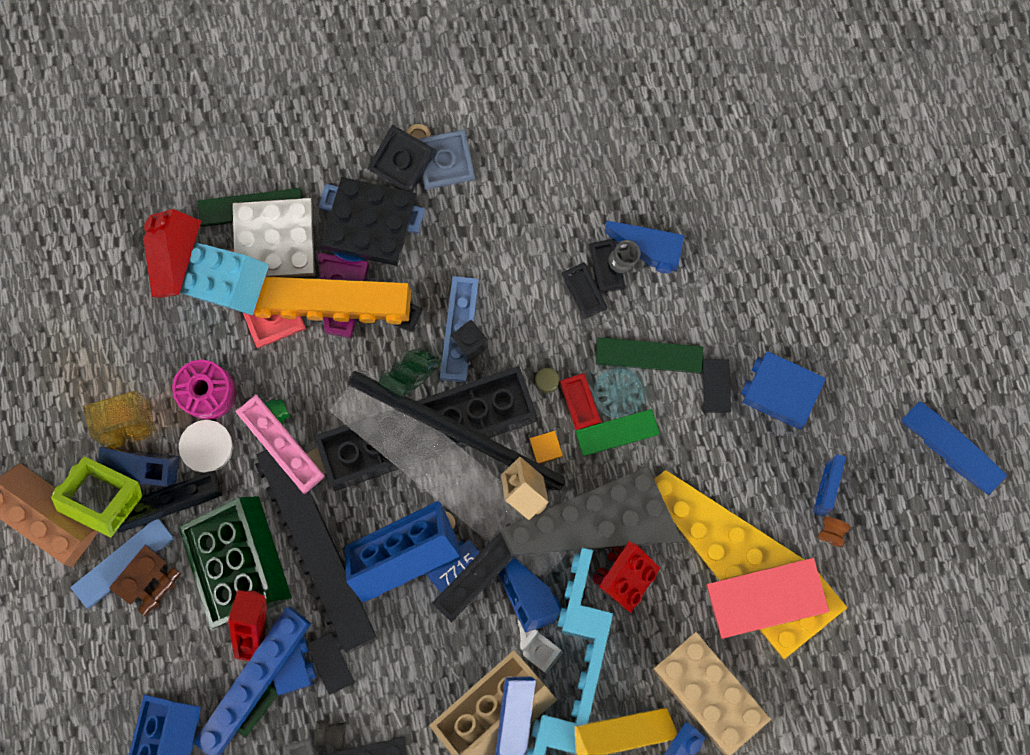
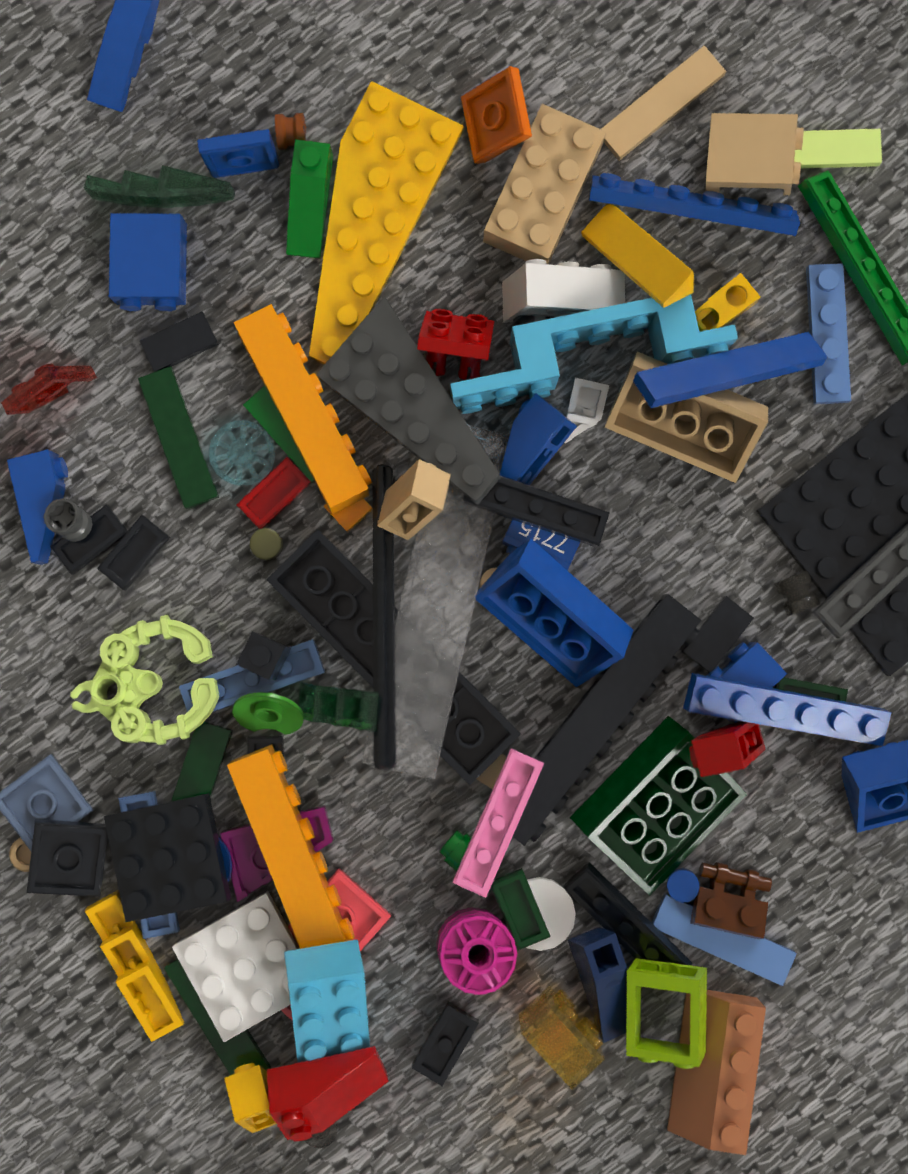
camera: 115 degrees left, 10 degrees up
(155, 343) = (445, 1043): none -> black plate
(173, 552) = (683, 885): none -> blue piece
(190, 202) = (249, 1097): none -> yellow slope
(216, 433) = (520, 909): none -> dark green tile
(306, 170) = (136, 968): none -> yellow slope
(421, 272) = (202, 761): none -> dark green tile
(432, 328) = (267, 711): none -> bright green dish
(492, 251) = (134, 686): none -> yellowish green piece
(625, 671) = (560, 289): none -> white wedge
(628, 446) = (302, 408): none -> light orange brick
(723, 282) = (45, 387): none -> clear red wing
(767, 598) = (405, 169): coral tile -> none
(778, 521) = (308, 198): none -> green slope
(778, 683) = (496, 115): none -> orange tile
(828, 429) = (170, 190): none -> clear green slope

